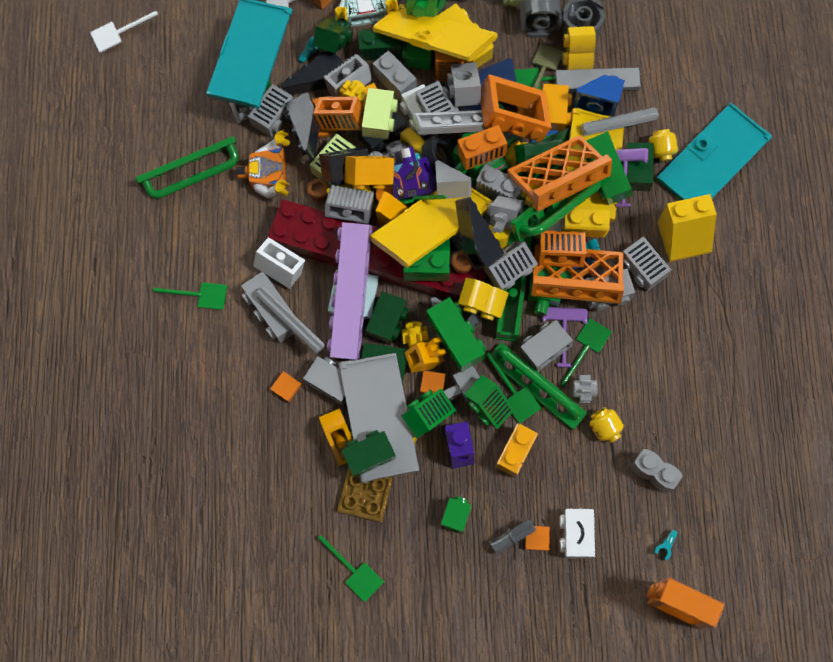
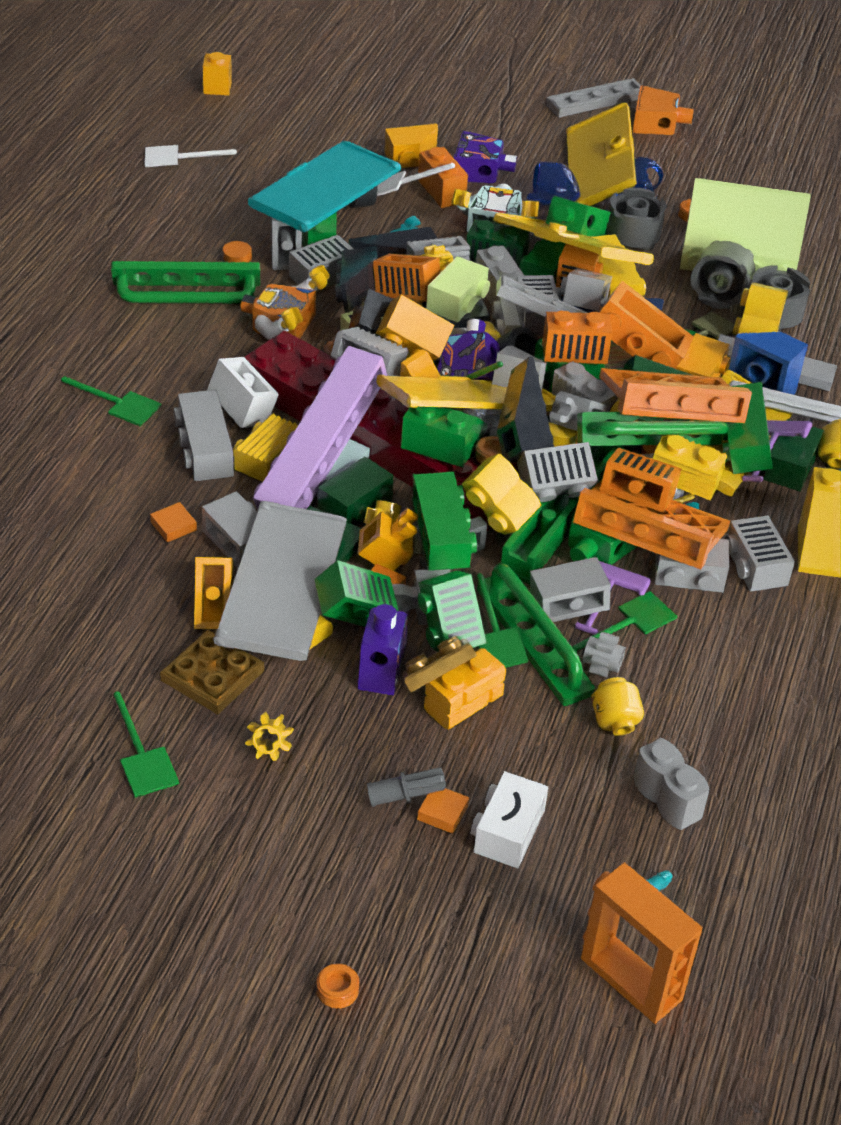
camera: 15 degrees right, 30 degrees down
(208, 120) = (237, 252): none -> orange tile
(290, 320) = (222, 441): light grey axle -> none
(315, 302) = (262, 446): none -> yellow brick
(332, 34) = (439, 214): dark green brick -> none
(368, 453) = (243, 601): dark green brick -> none
(423, 535) = (265, 746): none -> yellow gear
(456, 514) = (332, 733): green brick -> none
(499, 448) = (450, 655): none -> pearl gold tile

